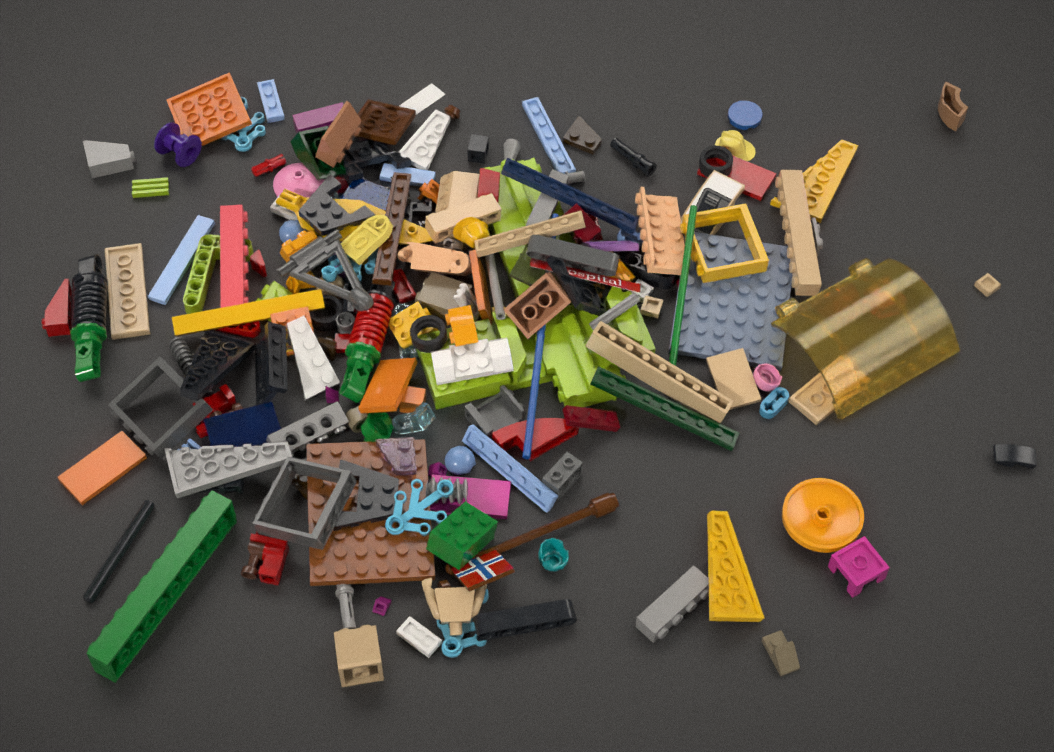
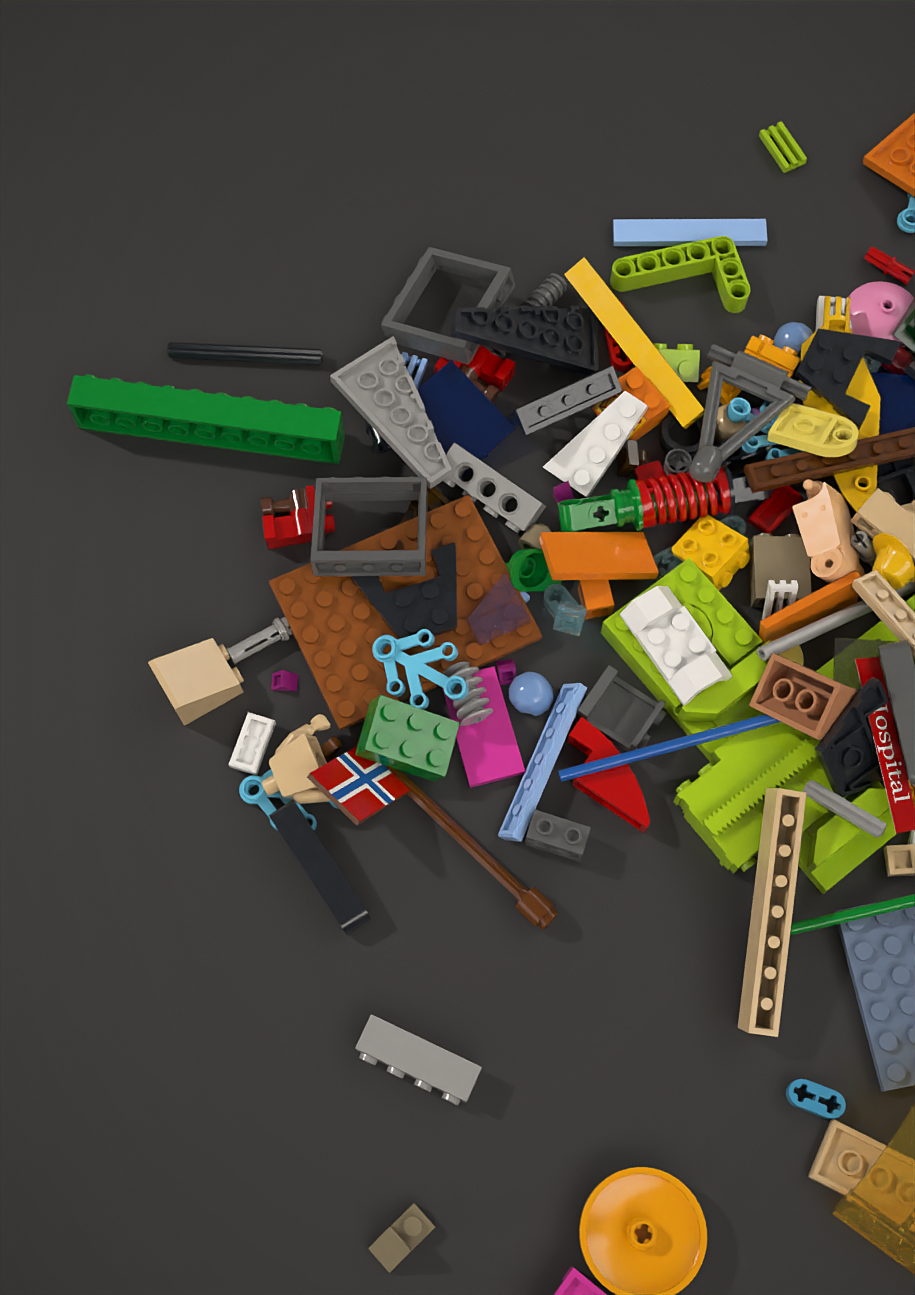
camera: 70 degrees right, 15 degrees up
(59, 312) = (545, 135): slope -> none
(89, 316) = (546, 167): piece -> none
(102, 467) = (348, 283): orange tile -> none
(108, 158) = (799, 77): light grey slope -> none
(127, 291) = (612, 194): tan tile -> none
(185, 147) = (863, 131): dark purple hose -> none
(232, 255) = (707, 285): coral brick -> none
(257, 263) = (725, 321): red slope -> none
(426, 322) = (695, 552): black tyre -> none
(462, 326) = (726, 605): light orange brick -> none
(553, 555) = (429, 868): teal hair -> none
(591, 418) = (664, 841): dark red plate -> none
(664, 408) = (723, 941): dark green tile -> none
(730, 584) = (477, 1129): yellow wing -> none
(734, 377) = (826, 1024): tan tile -> none
(767, 377) = (852, 1074): bright pink hair -> none

